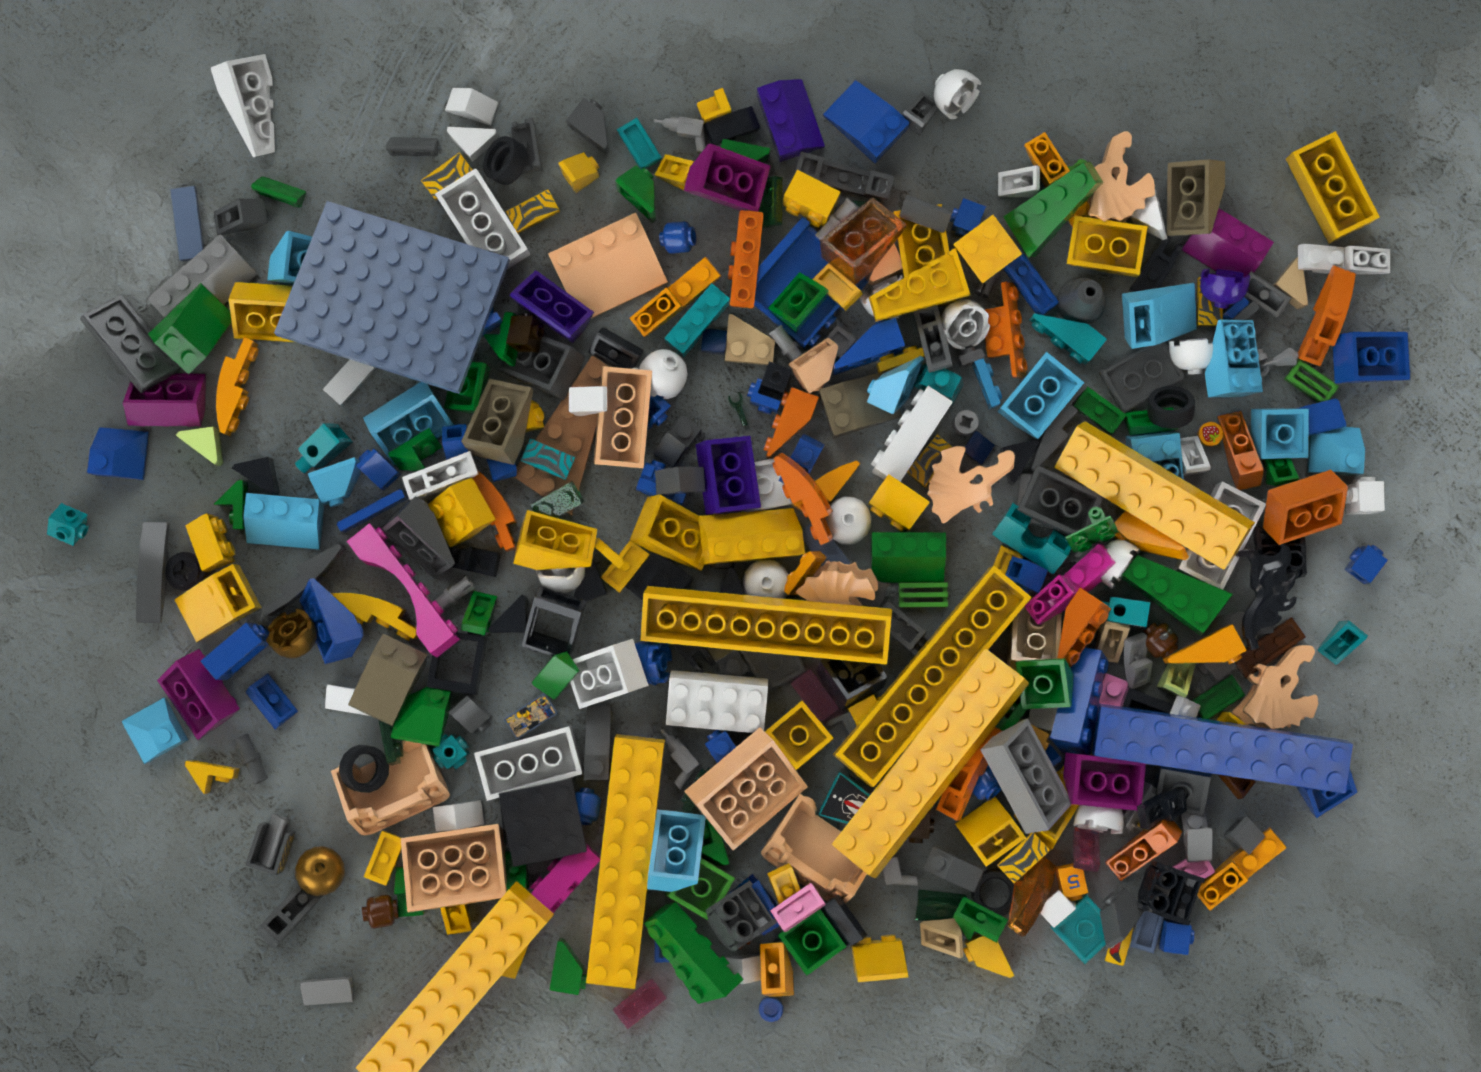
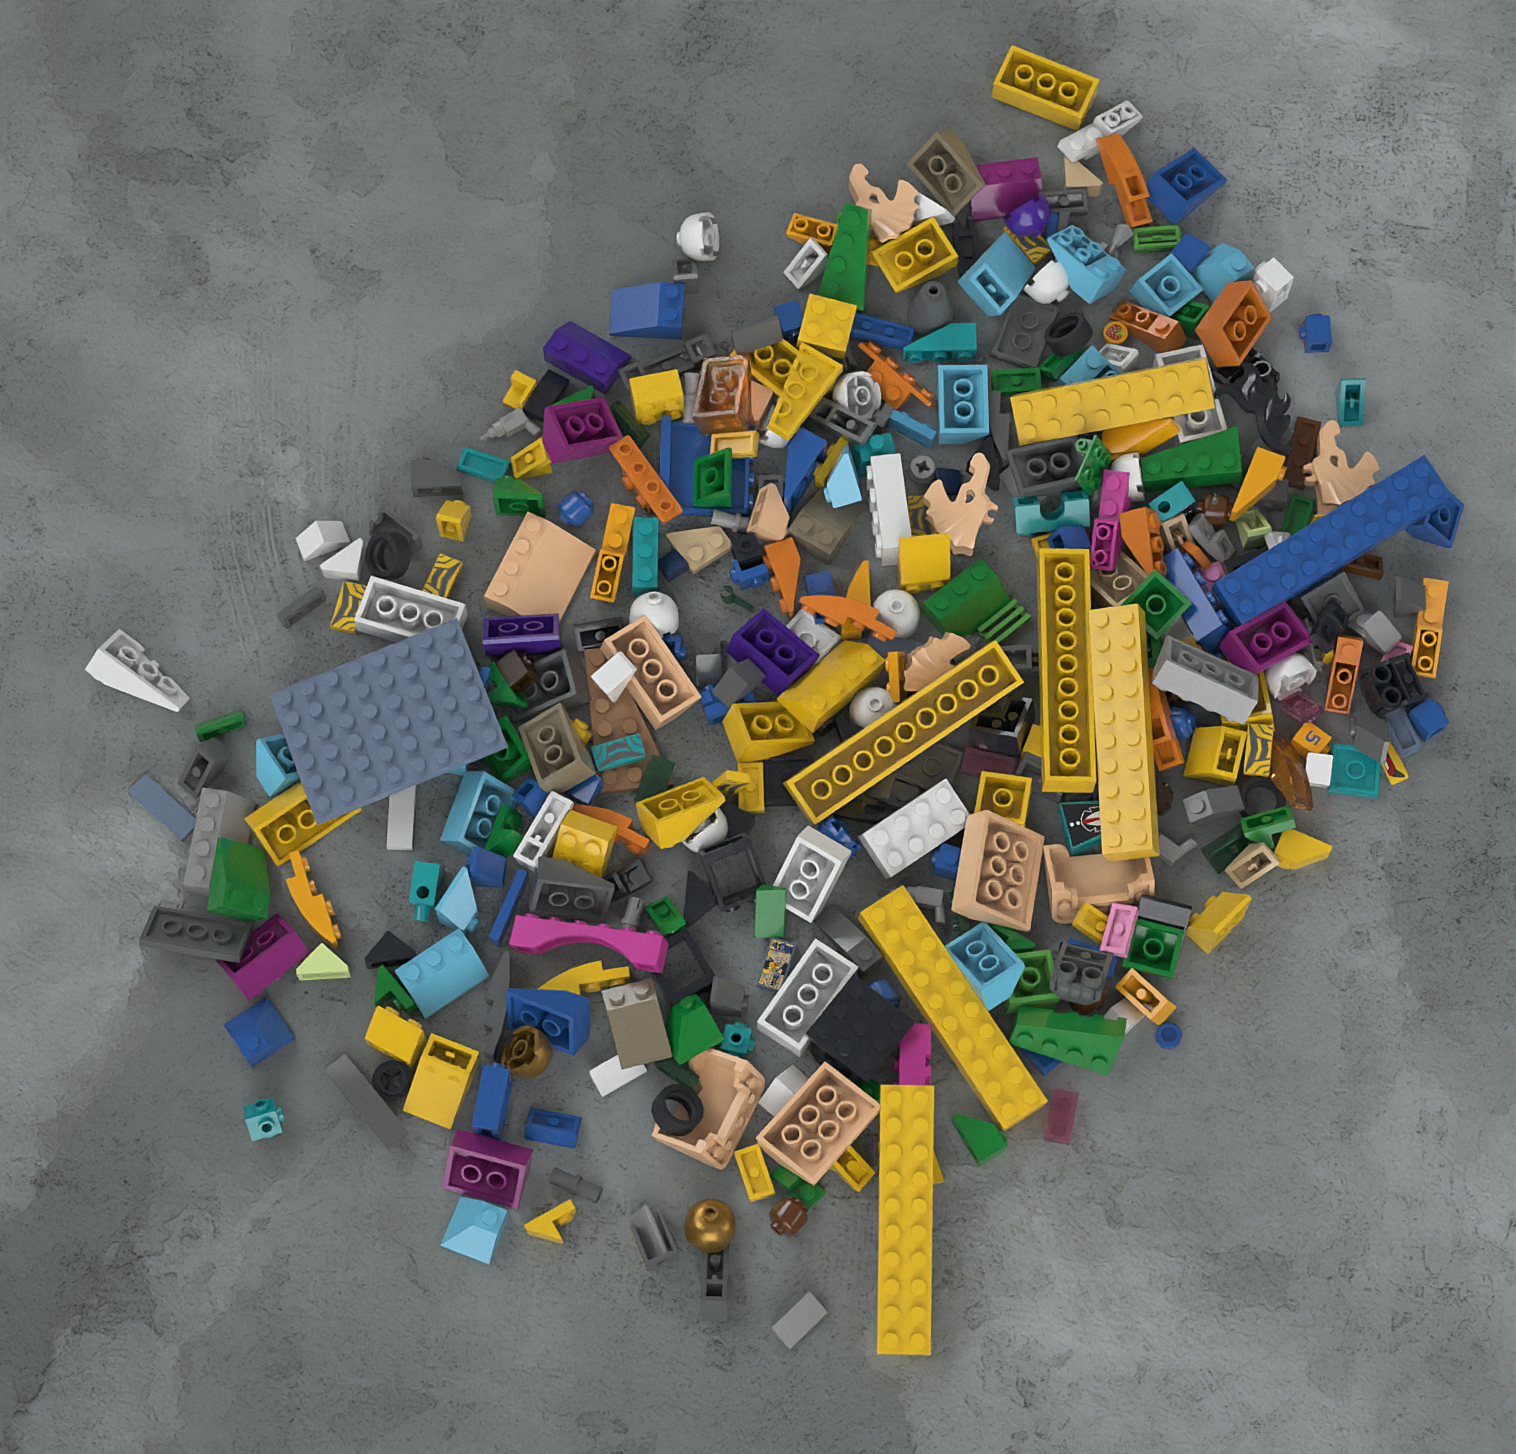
camera: 40 degrees left, 15 degrees down
(1113, 664) = (1196, 553): none -> orange tile

